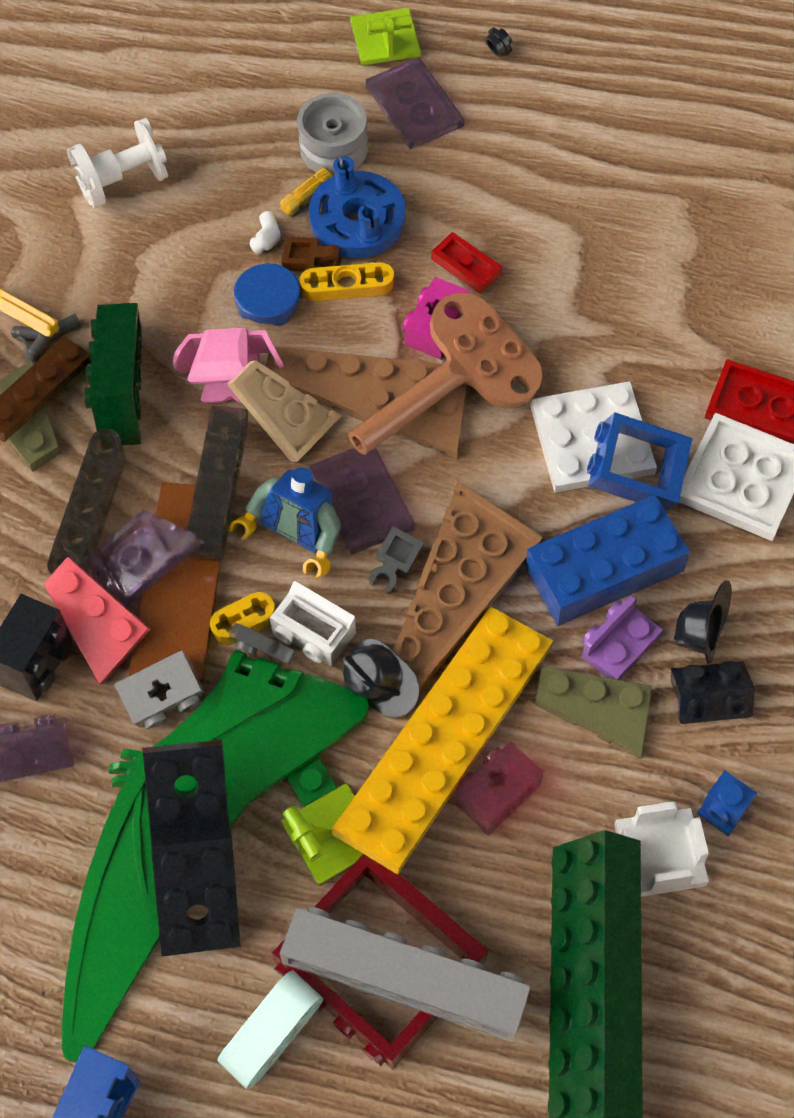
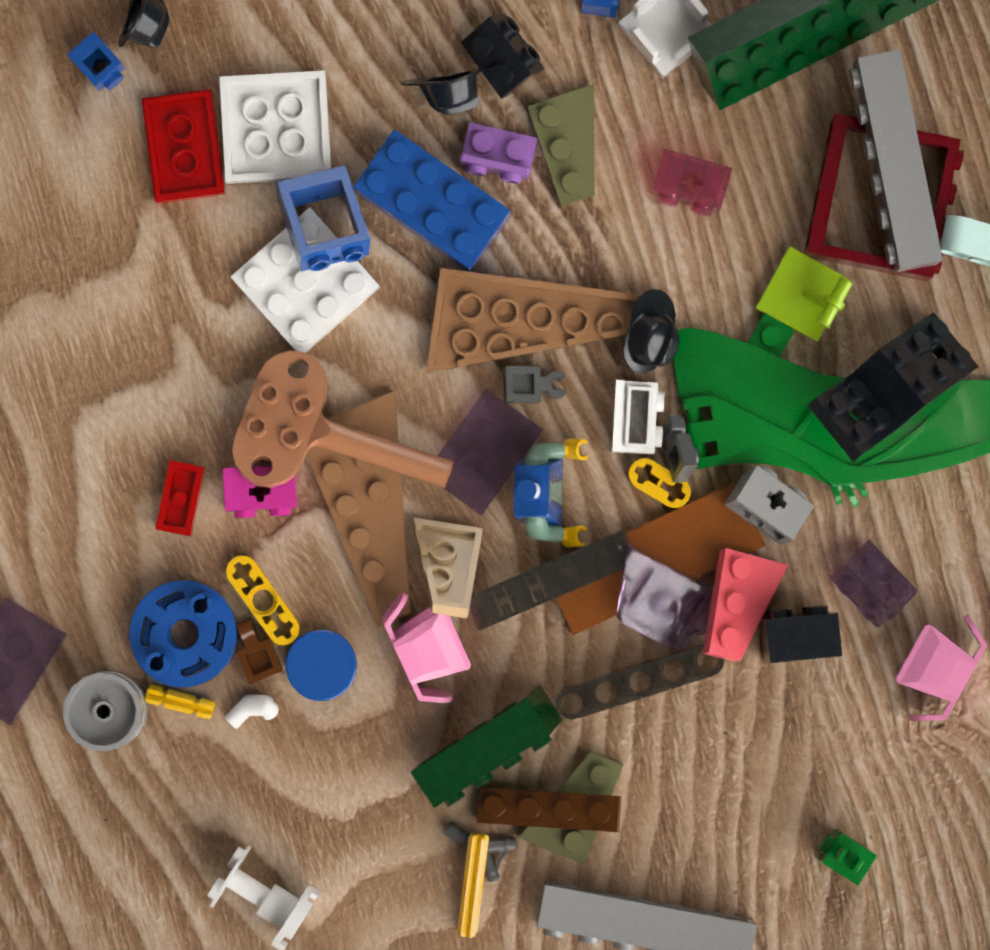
camera: 120 degrees left, 25 degrees up
(442, 740) = (673, 247): yellow plate -> none

